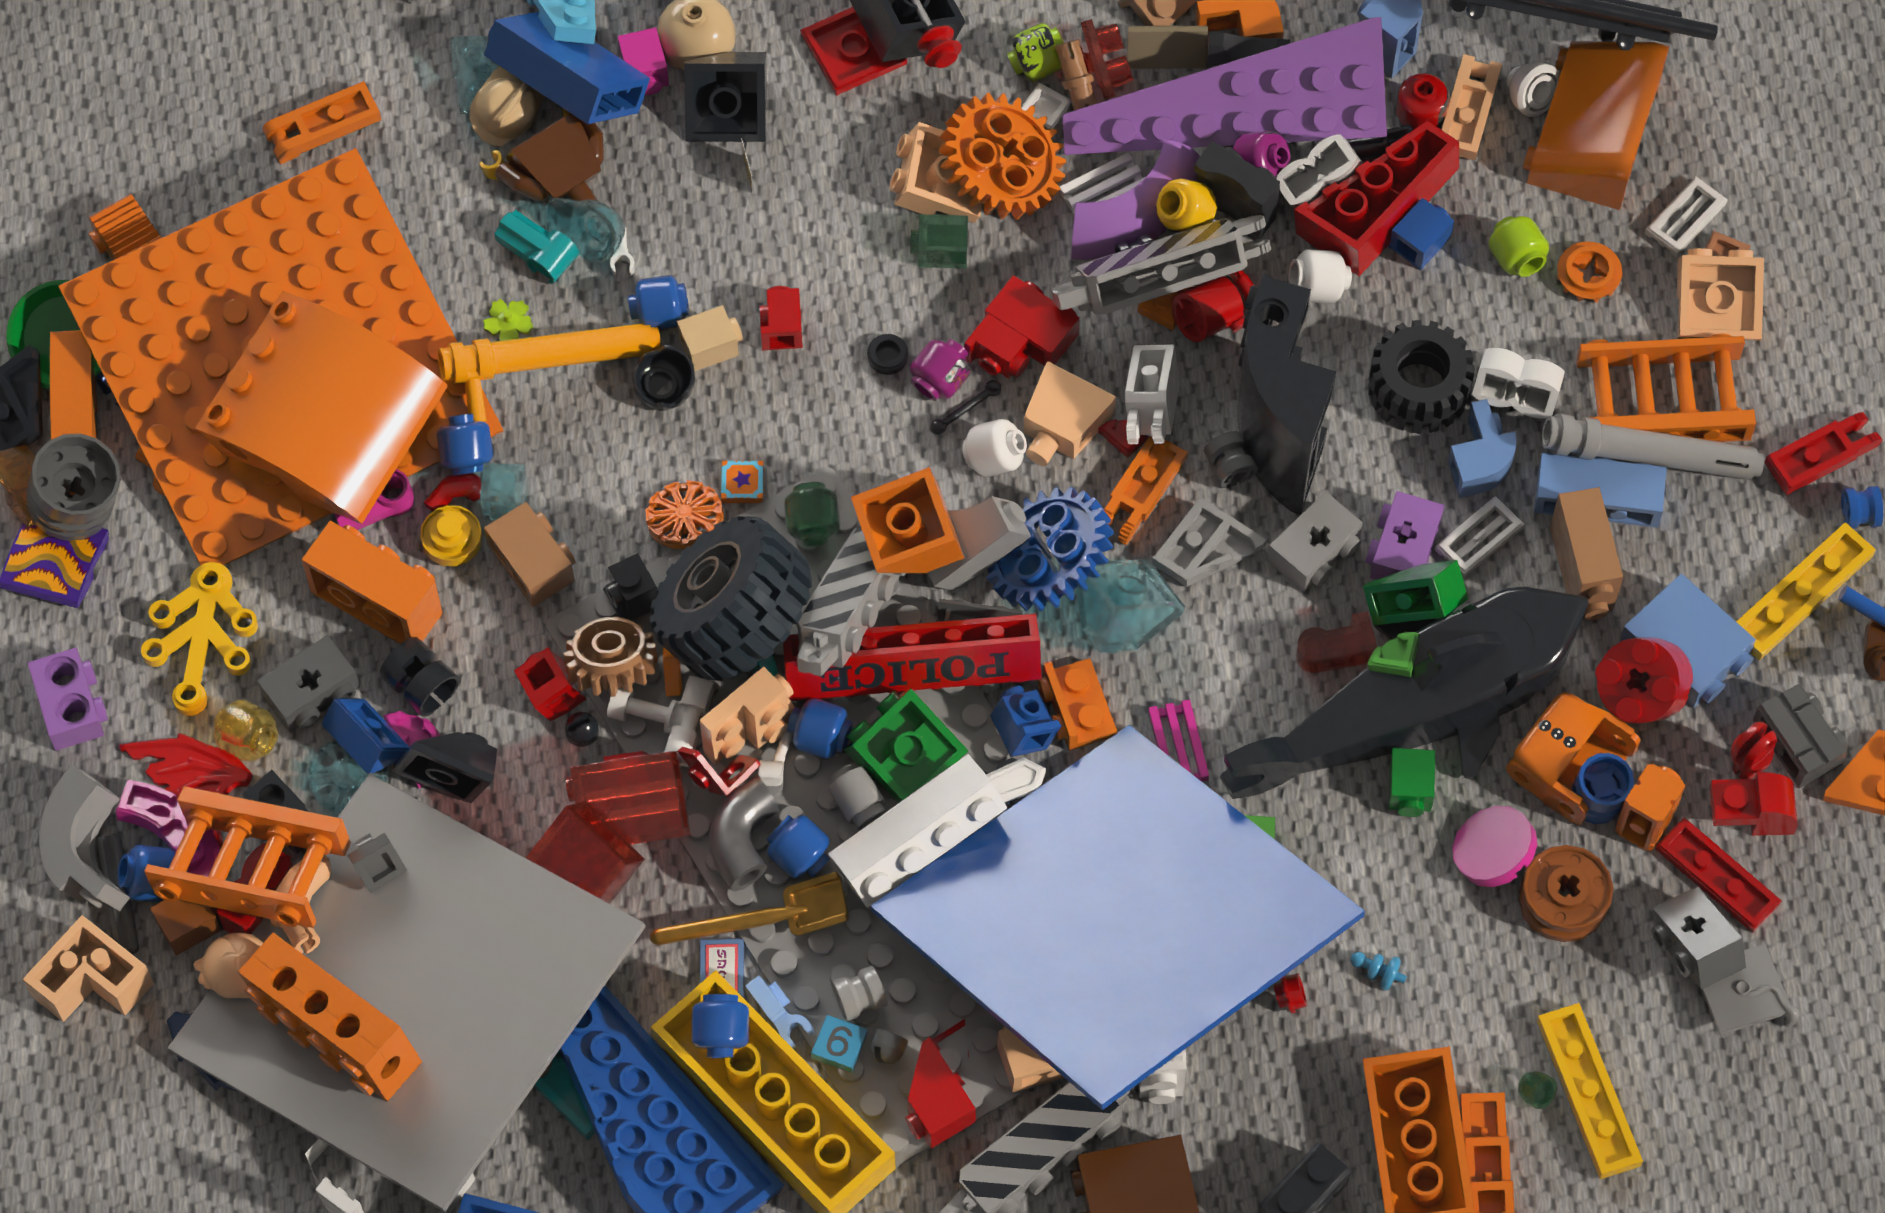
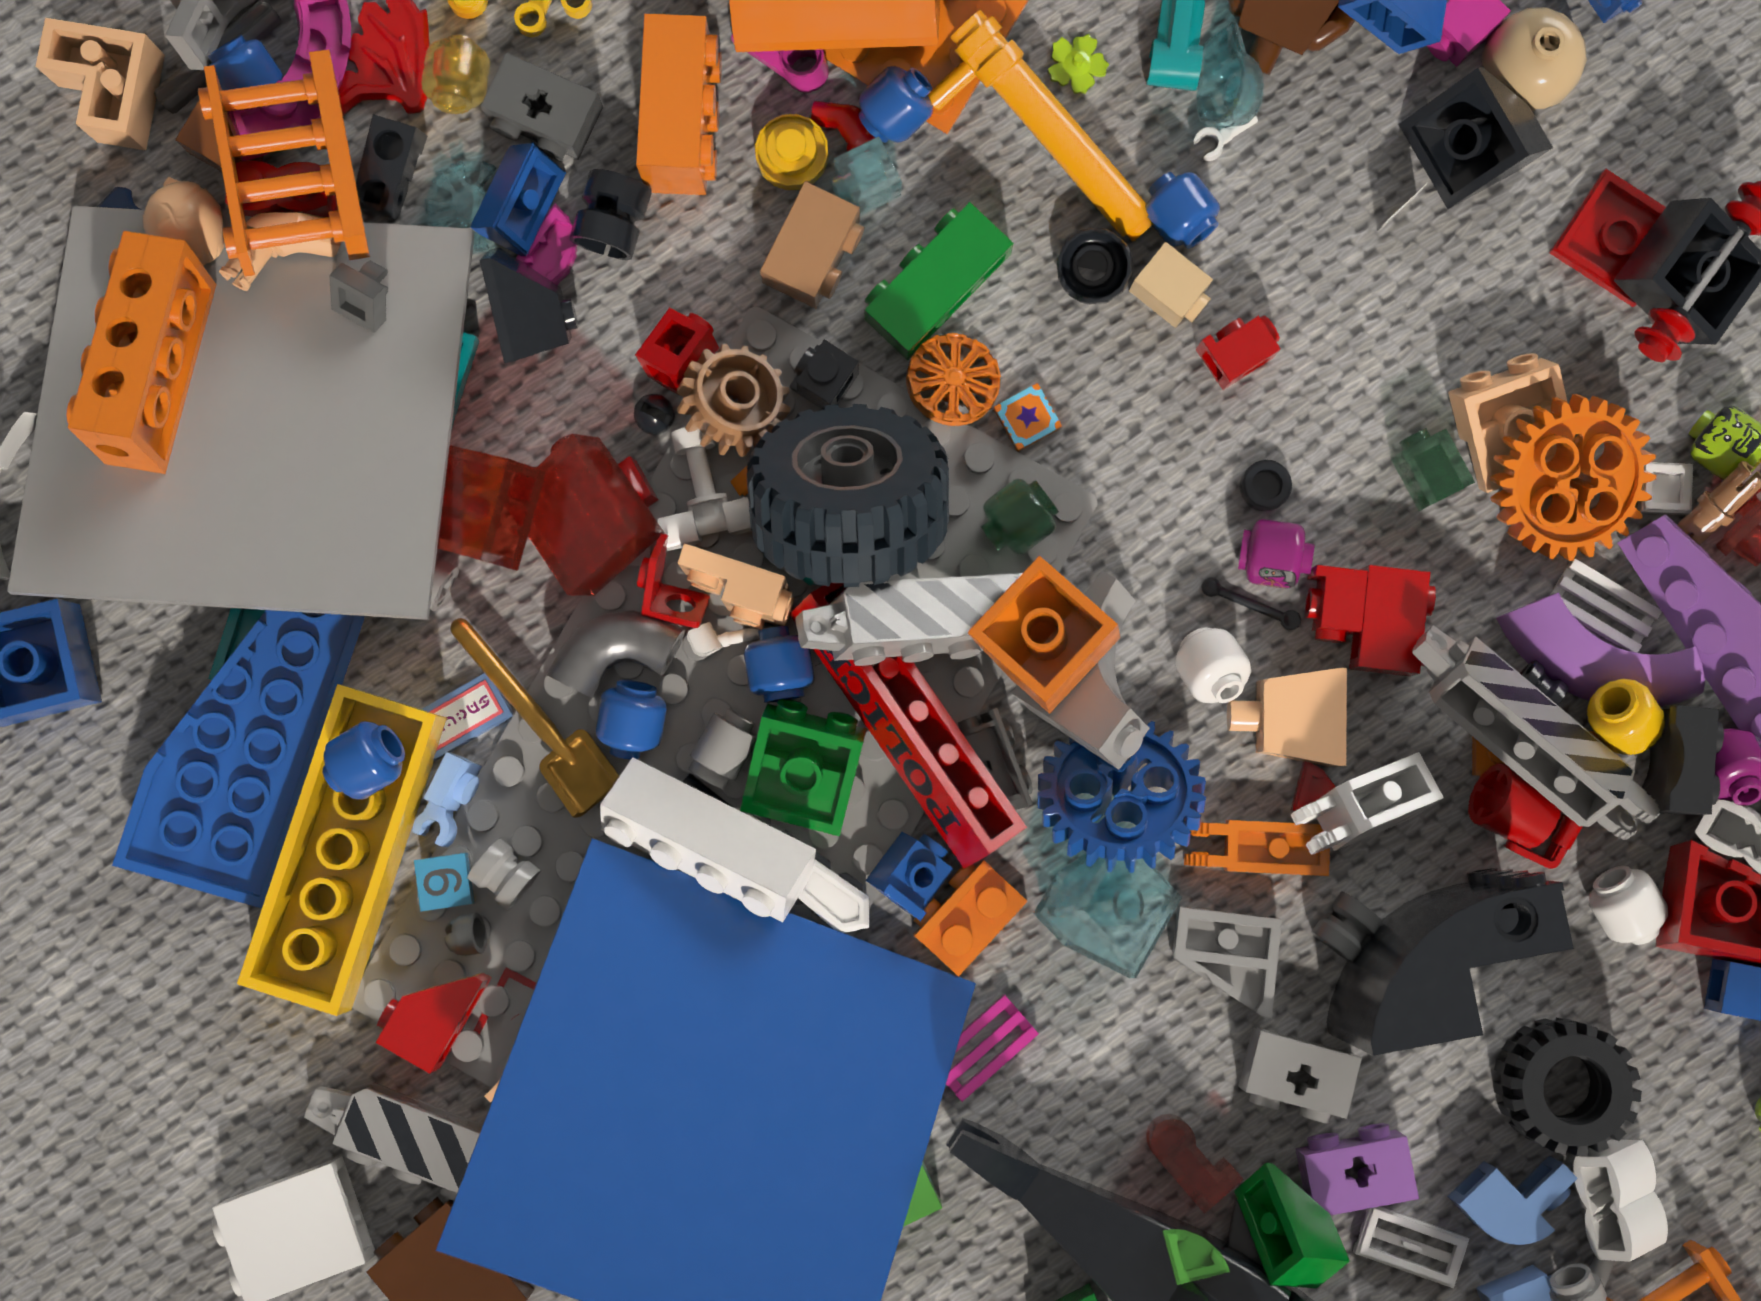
camera: 60 degrees right, 20 degrees up
(606, 486) = (936, 279): none -> green brick

